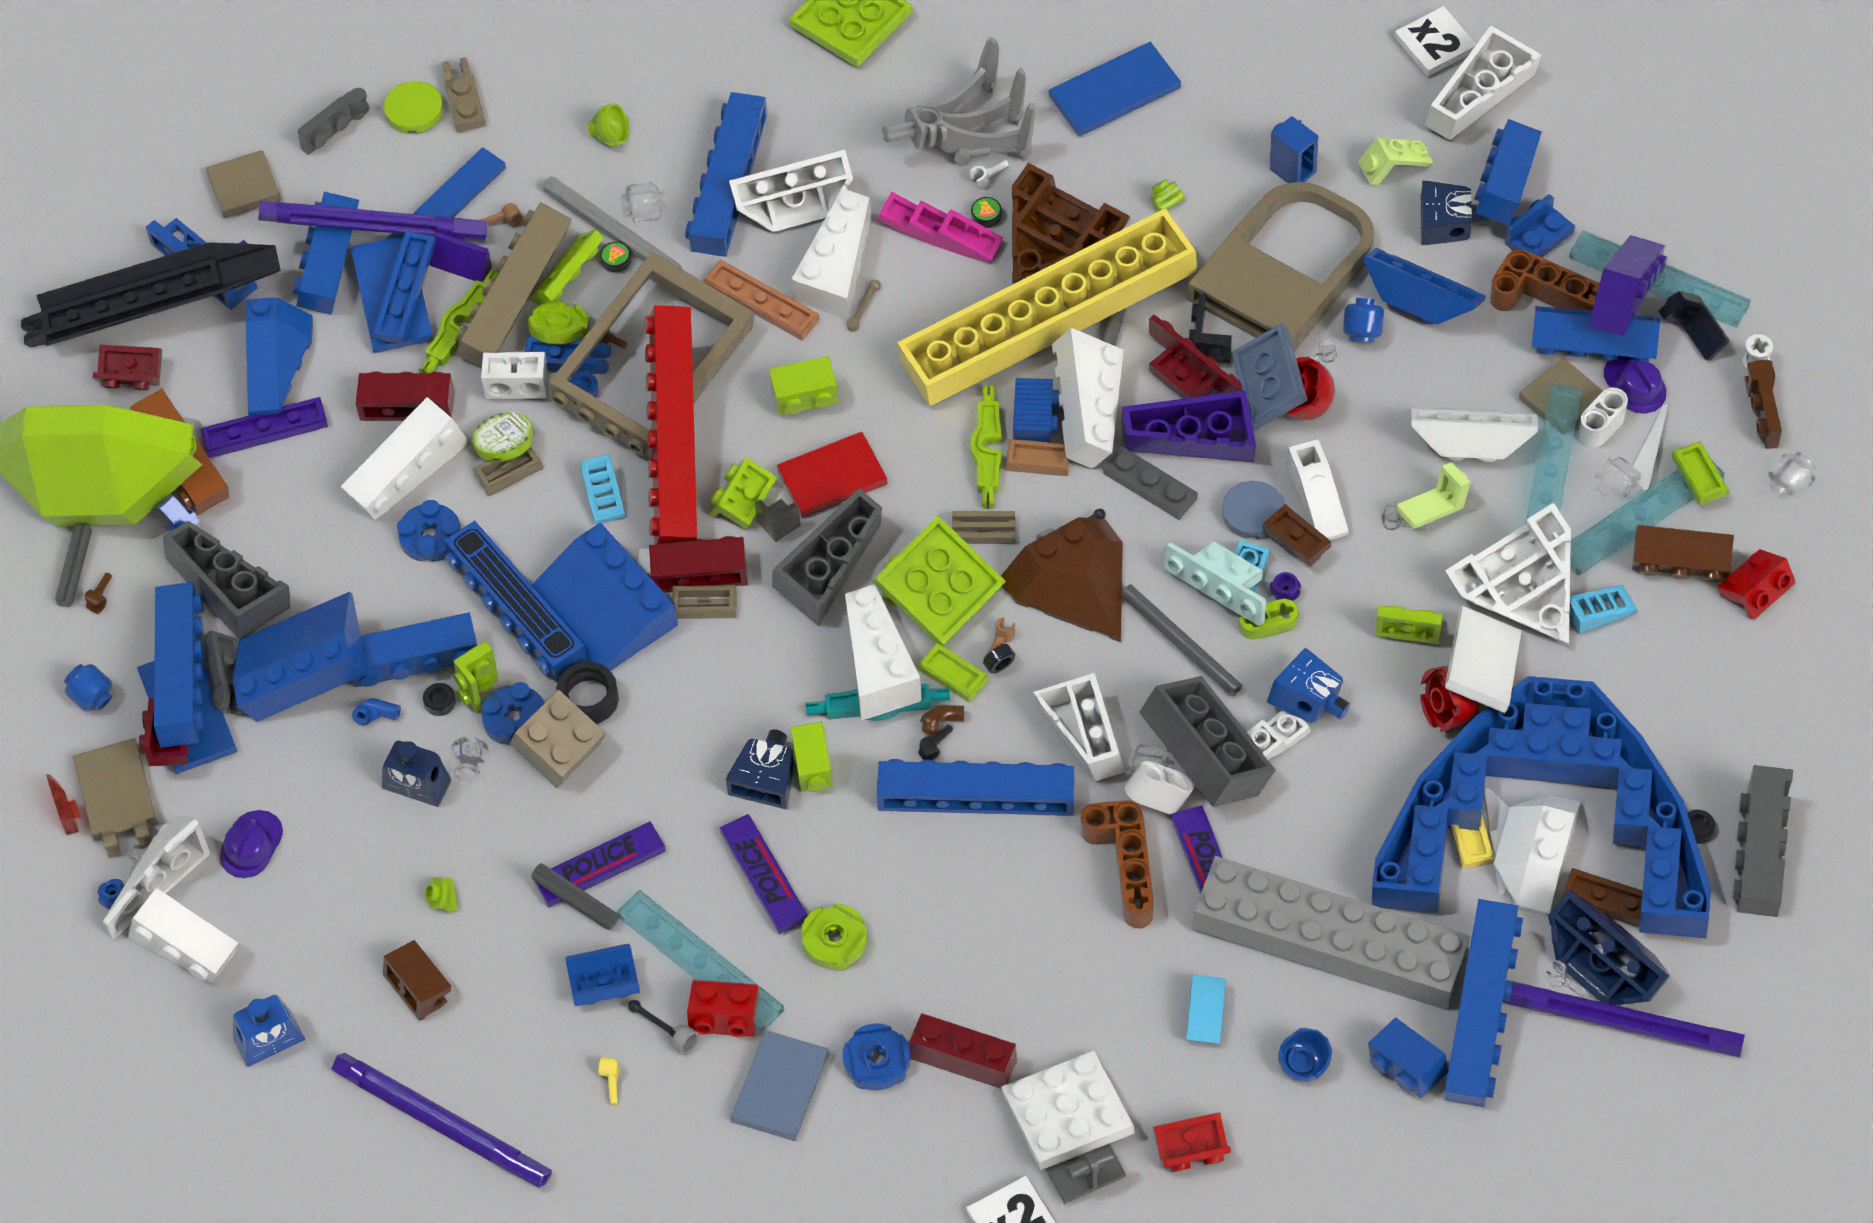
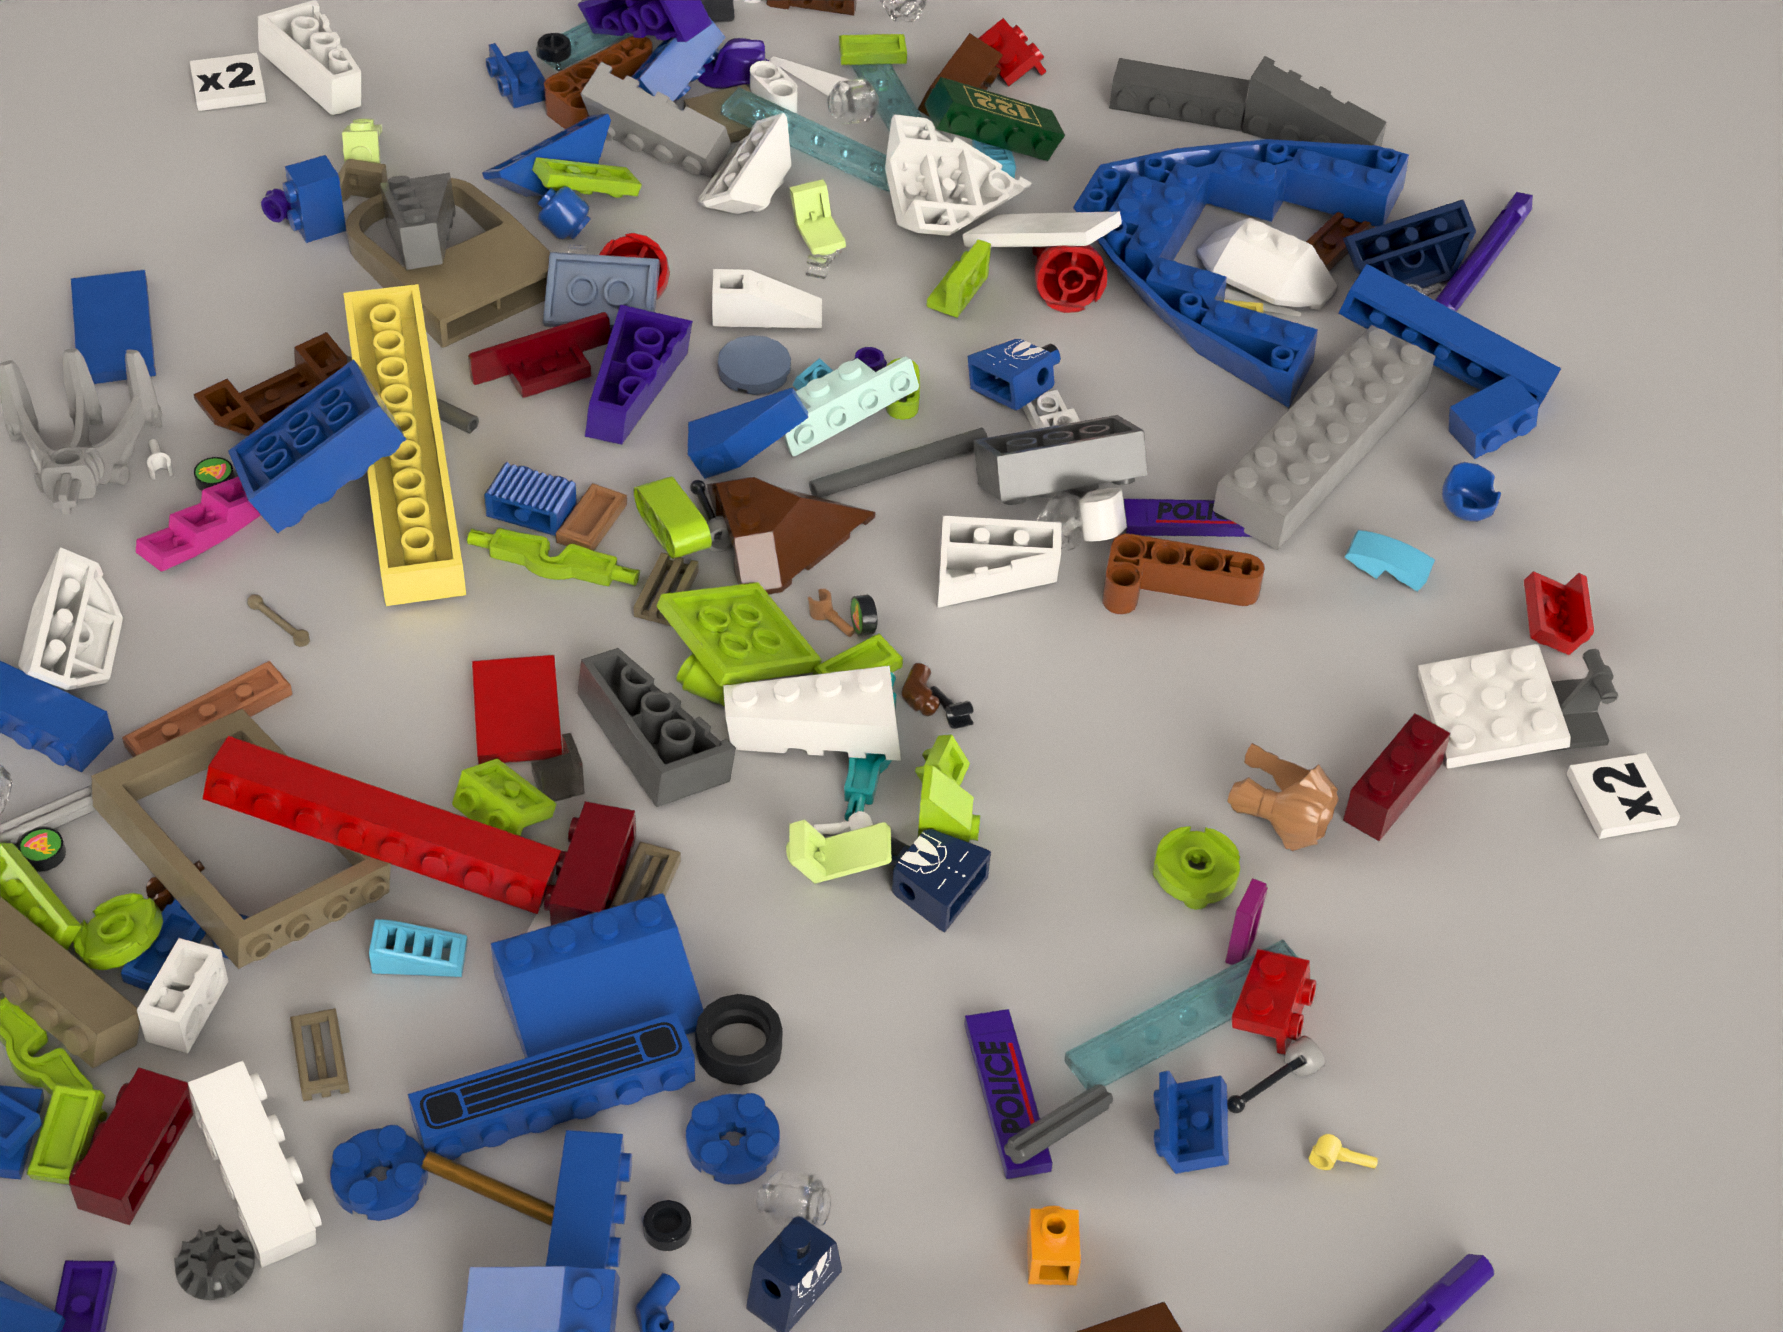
camera: 80 degrees left, 10 degrees down
(328, 470) = (229, 1274): none -> dark grey gear
(408, 357) = (65, 1132): none -> lime tile
(433, 585) = (488, 1187): none -> pearl gold bar
(441, 894) = (996, 1293): lime plate -> none
(475, 674) = (673, 1159): lime bracket -> none
(481, 916) = (1053, 1246): none -> light orange brick
(503, 436) = (272, 1038): tile -> none
(557, 738) = (810, 1079): dark tan brick -> none
(758, 699) = (840, 854): none -> yellowish green bracket
(763, 873) = (1080, 918): dark purple tile -> none
(773, 969) = (1246, 922): none -> magenta tile
(780, 1085) = (1392, 974): sand blue tile -> none
(795, 715) = (855, 821): none -> white hand
(803, 385) = (379, 693): lime brick -> none
(833, 260) = (198, 617): white wedge -> none
(868, 750) = (947, 758): none -> lime tile
(876, 1075) = (1372, 884): blue plate -> none
(886, 979) = (1298, 811): none -> medium nougat piece
(976, 787) = (1034, 681): blue brick -> none
(995, 253) = (315, 447): none -> blue slope
(1046, 504) = (672, 517): none -> lime beam
(1089, 395) = (548, 439): white wedge -> none
(1144, 517) = (741, 432): none -> blue slope
(1150, 483) = (663, 440): dark grey plate -> none
(1166, 195) = (292, 321): lime plate -> none
(1212, 345) = (485, 333): black bracket -> none
(1295, 225) = (419, 217): none -> dark grey wedge
(1296, 535) = (814, 331): reddish brown plate -> none
(1345, 167) = (361, 178): none -> dark tan plate
(1410, 320) = (586, 177): none -> lime plate
(1447, 213) = (456, 126): dark blue torso -> none
(1501, 342) = (656, 123): none -> light grey wedge
(1507, 171) = (446, 60): blue brick -> none
(1581, 241) = (554, 47): none -> black tile
(1614, 586) = (994, 119): none -> dark green brick
(1755, 719) = (1179, 94): none -> dark grey brick

